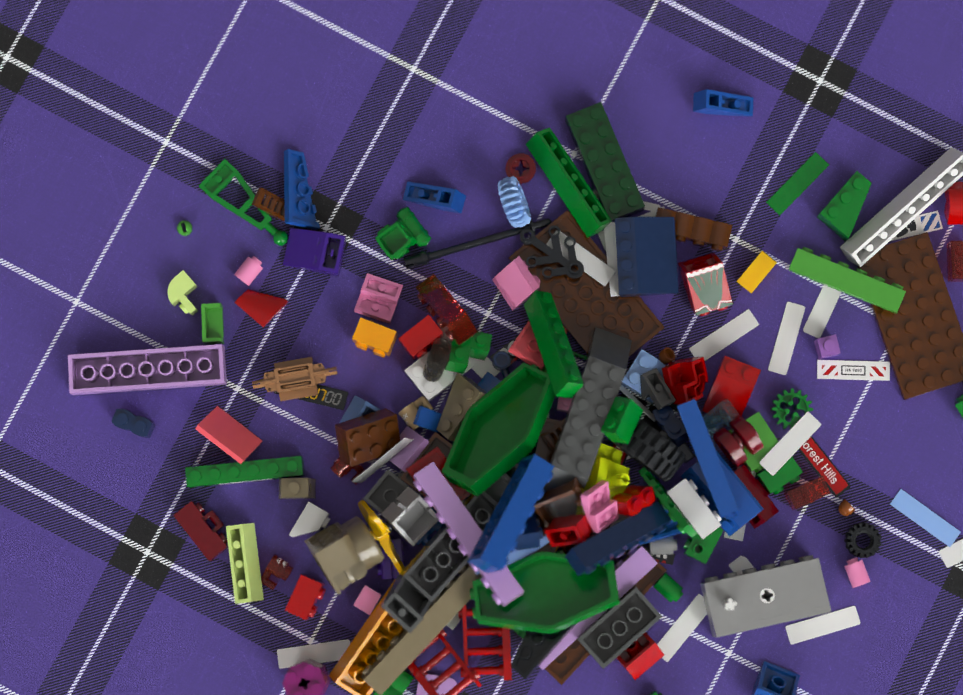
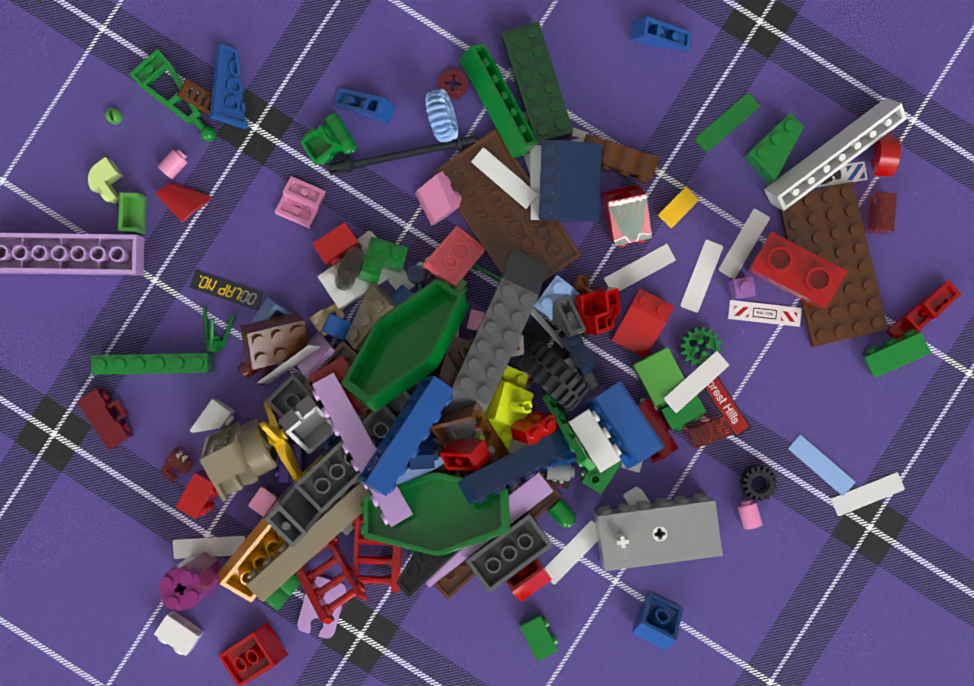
camera: 10 degrees right, 5 degrees up
(136, 424) = (46, 306): dark blue brick -> none
(229, 435) = (138, 326): coral tile -> none
(244, 563) = (144, 454): yellowish green brick -> none
(295, 378) = (208, 275): medium nougat piece -> none
(297, 488) = (202, 385): dark tan torso -> none
(303, 445) = (212, 342): none -> green plant
(315, 251) = (241, 149): dark purple slope -> none
(374, 337) = (286, 238): light orange brick -> none
(446, 309) = (363, 219): clear red wedge -> none
(553, 344) = (467, 264): green brick -> none
(554, 254) = (477, 173): black plant -> none
(599, 507) = (498, 434): bright pink slope -> none
(621, 420) = (529, 347): green brick -> none
(708, 459) = (614, 394): blue brick -> none
(719, 416) = (623, 352): clear light blue brick -> none
(742, 437) = (650, 371): dark red wheel -> none
(822, 625) = (731, 557): white sticker -> none
(845, 508) = (744, 449): dark orange hinge -> none
(847, 280) = (764, 220): bright green brick -> none
(873, 325) = (797, 271): none -> red brick

